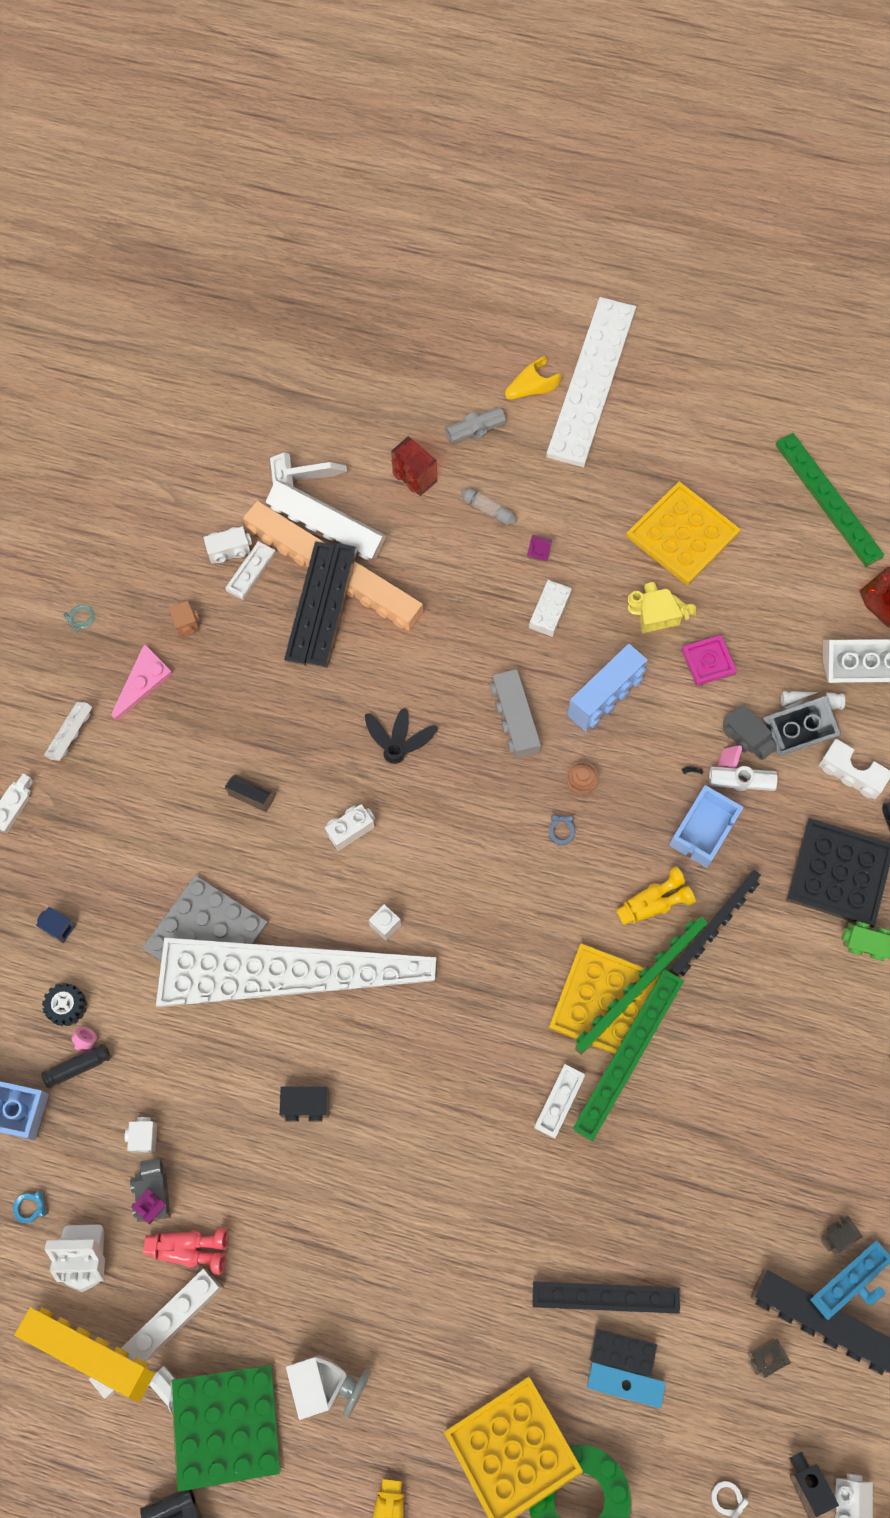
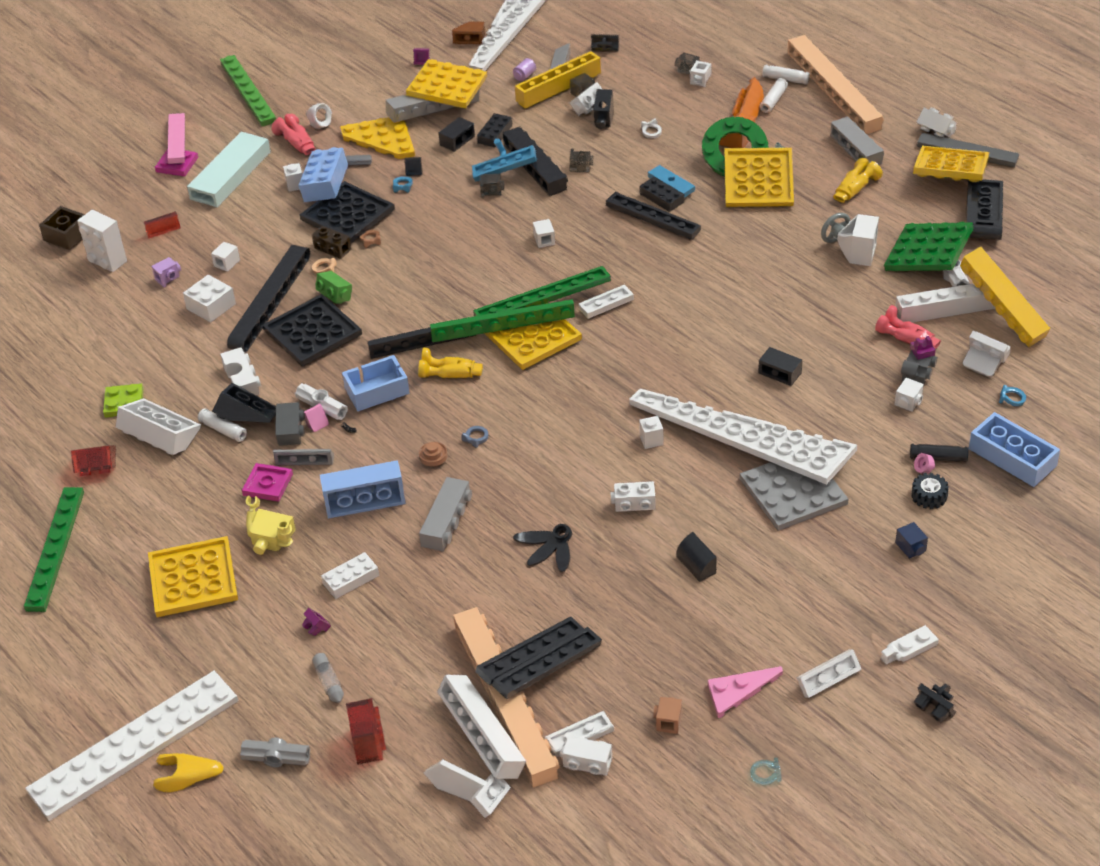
camera: 145 degrees left, 25 degrees down
(702, 708) = (304, 457): none -> light grey slope
(712, 1180) = (543, 233): none -> white brick

